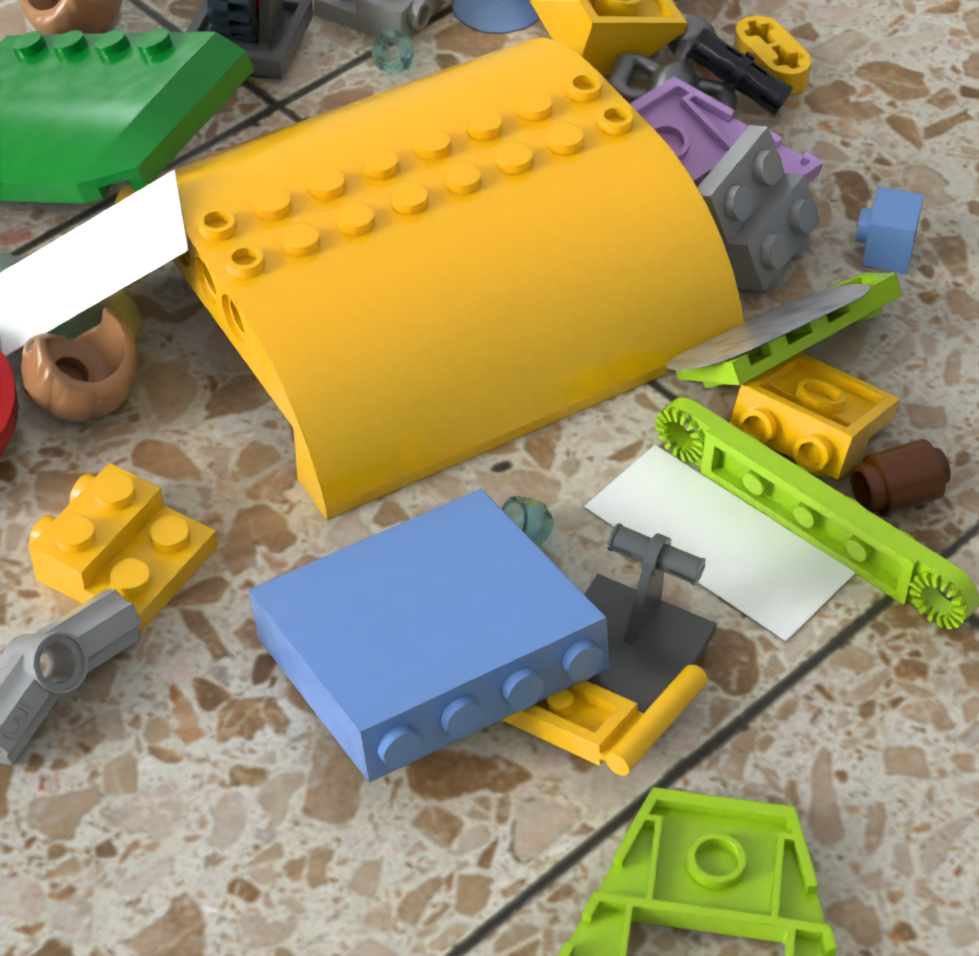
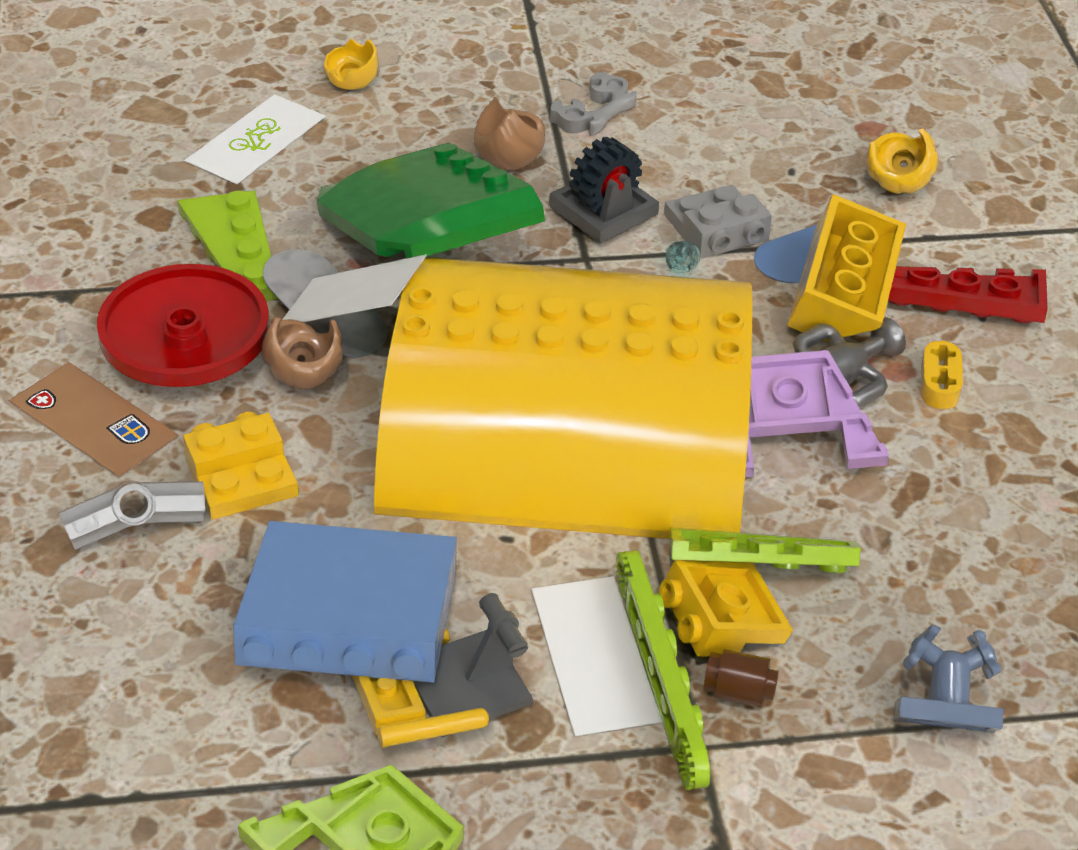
camera: 35 degrees right, 5 degrees down
(530, 517) = (480, 576): clear light blue hinge -> none
(739, 71) = (896, 372): black pin -> none
(759, 210) = (802, 462): light grey plate -> none
(767, 327) = (738, 536): flat silver sticker -> none
(889, 229) = (900, 523): medium blue plate -> none

